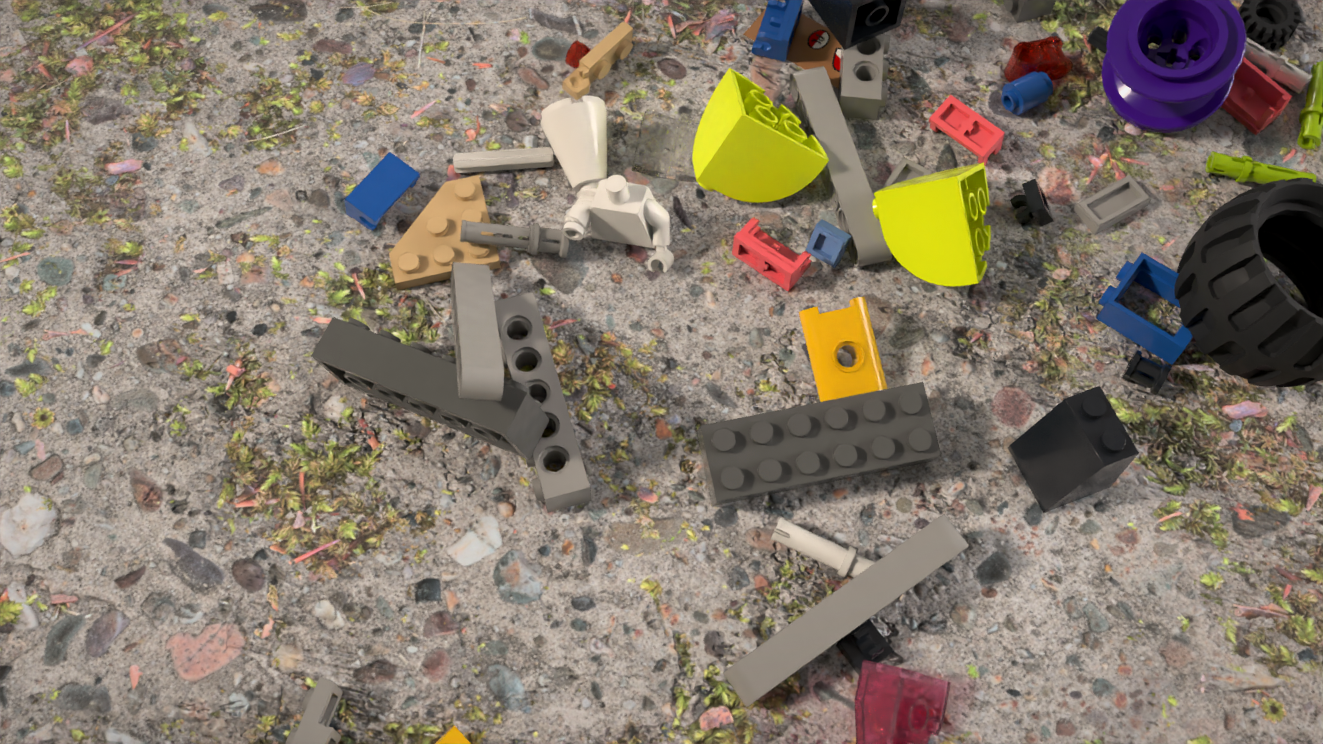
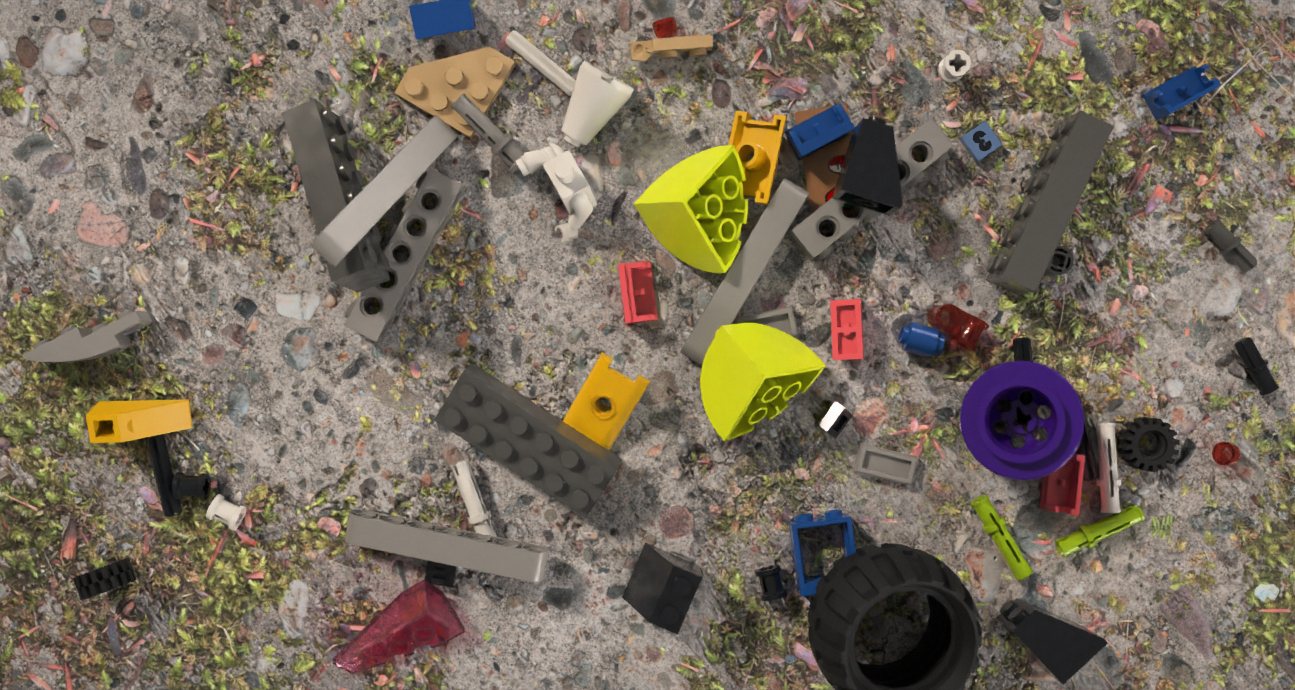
camera: 45 degrees right, 25 degrees up
(751, 58) = (765, 142): none -> yellow piece
(828, 243) = (676, 320): medium blue tile -> none

